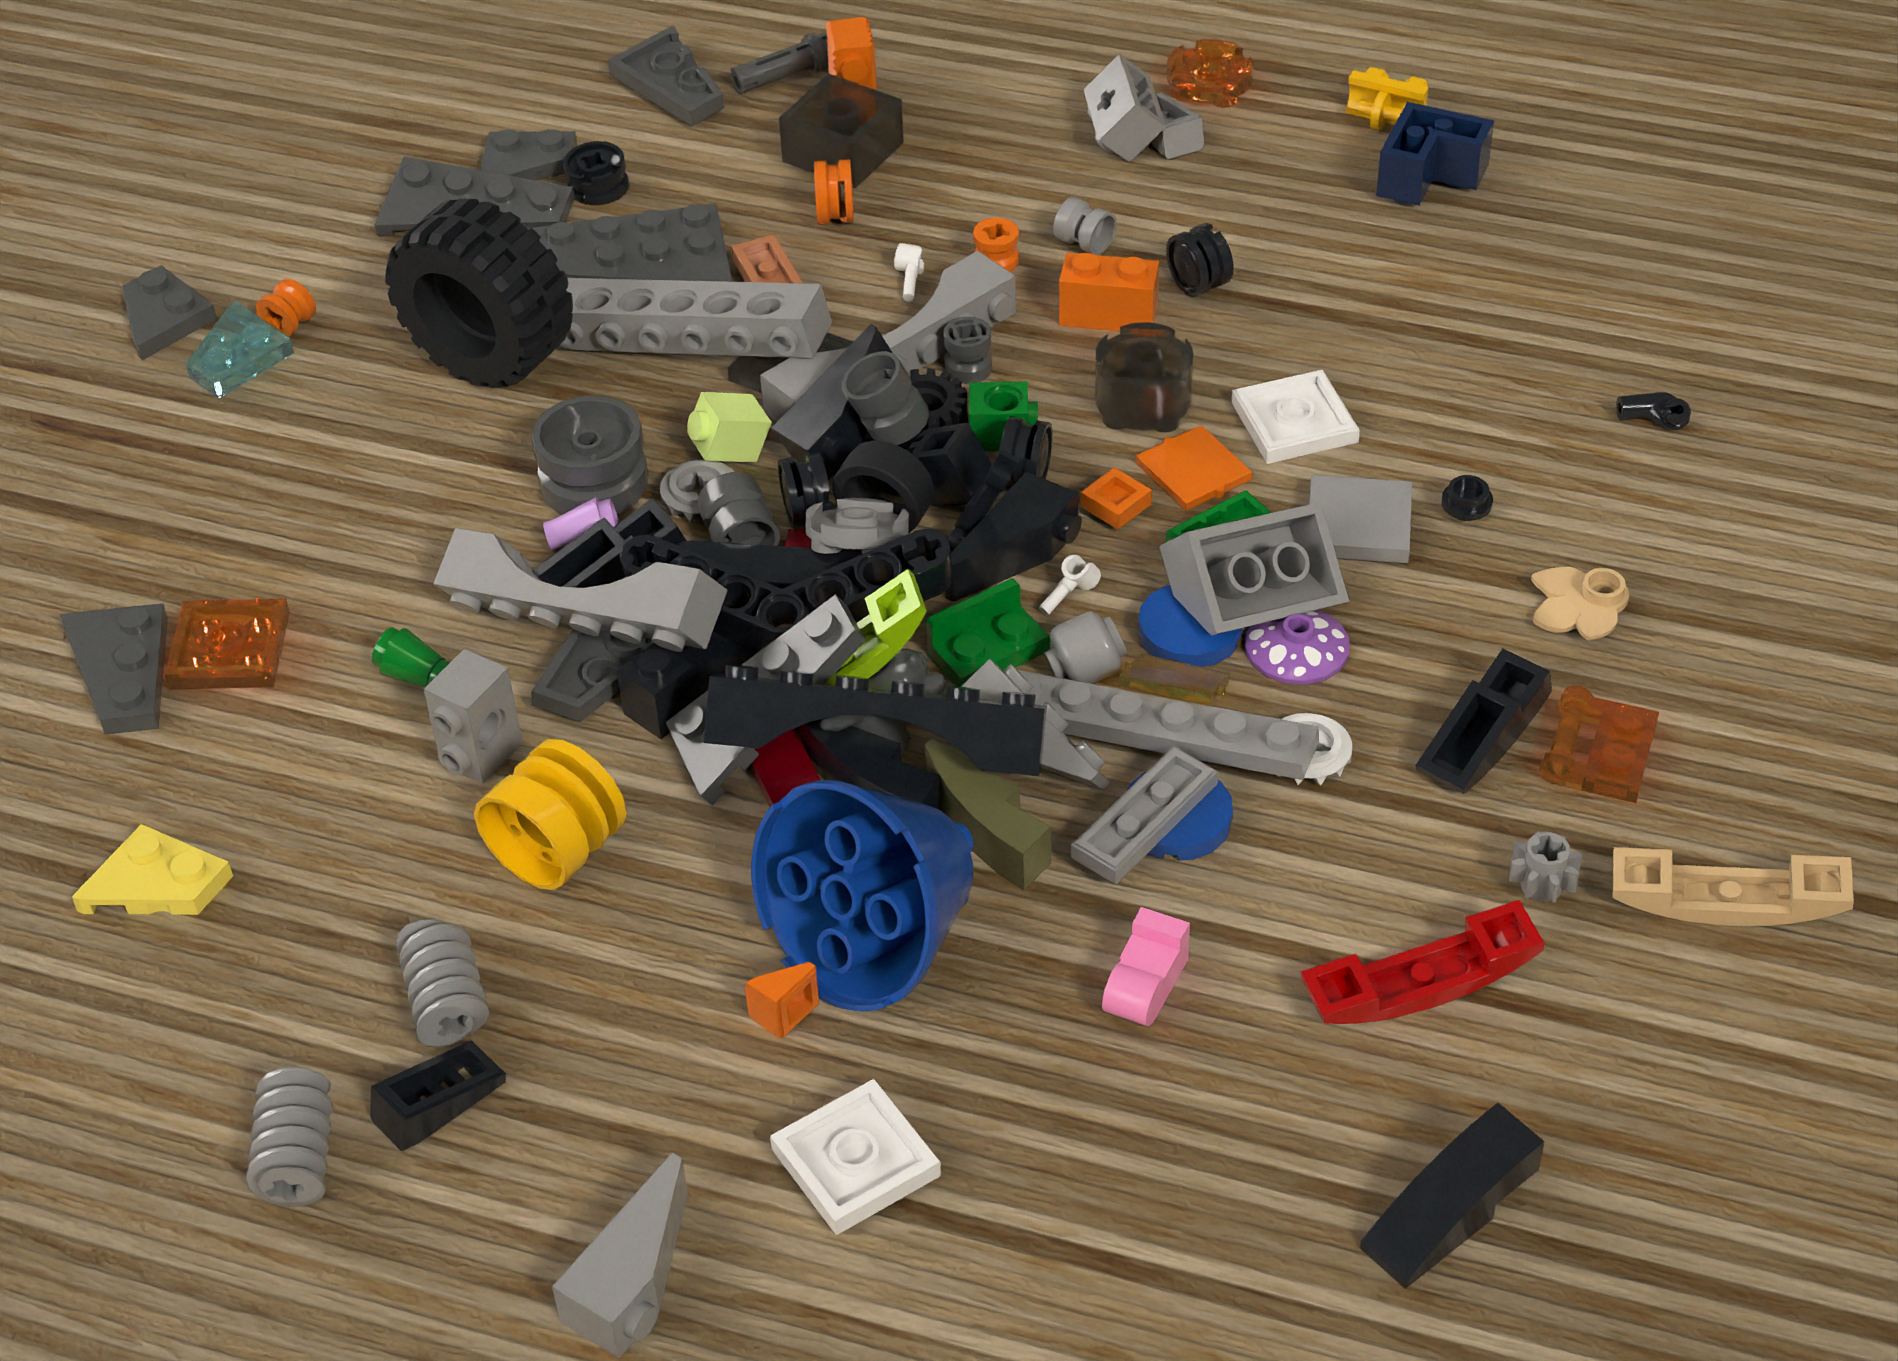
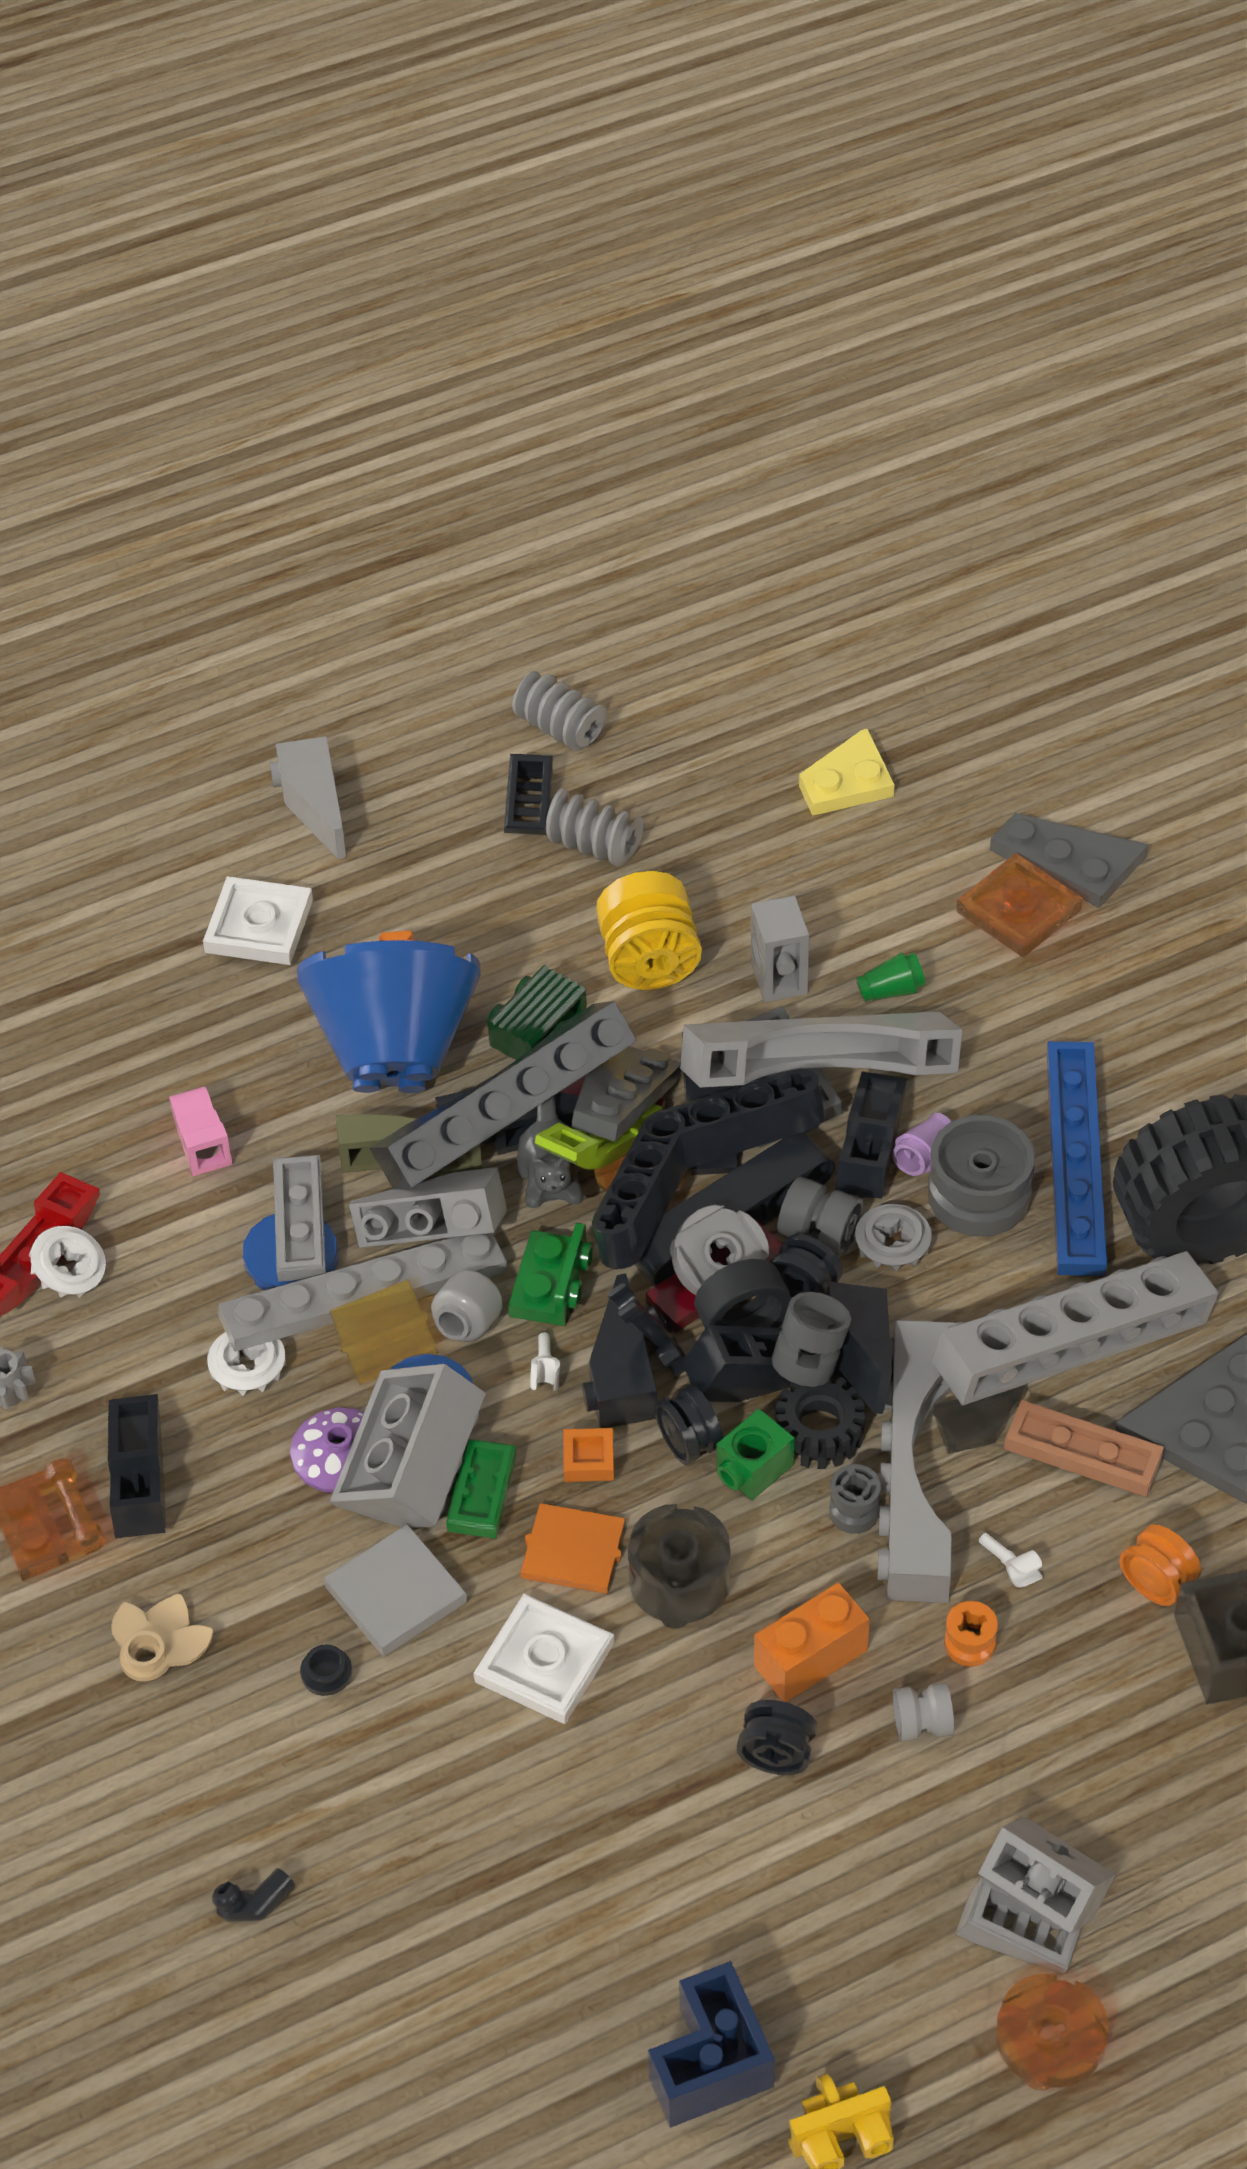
camera: 135 degrees right, 5 degrees up
(481, 451) = (1076, 1159): none -> blue plate
(716, 843) = (534, 1011): none -> dark green brick
(728, 427) = (926, 1276): yellowish green brick -> none
(1377, 929) = (74, 1245): none -> white gear

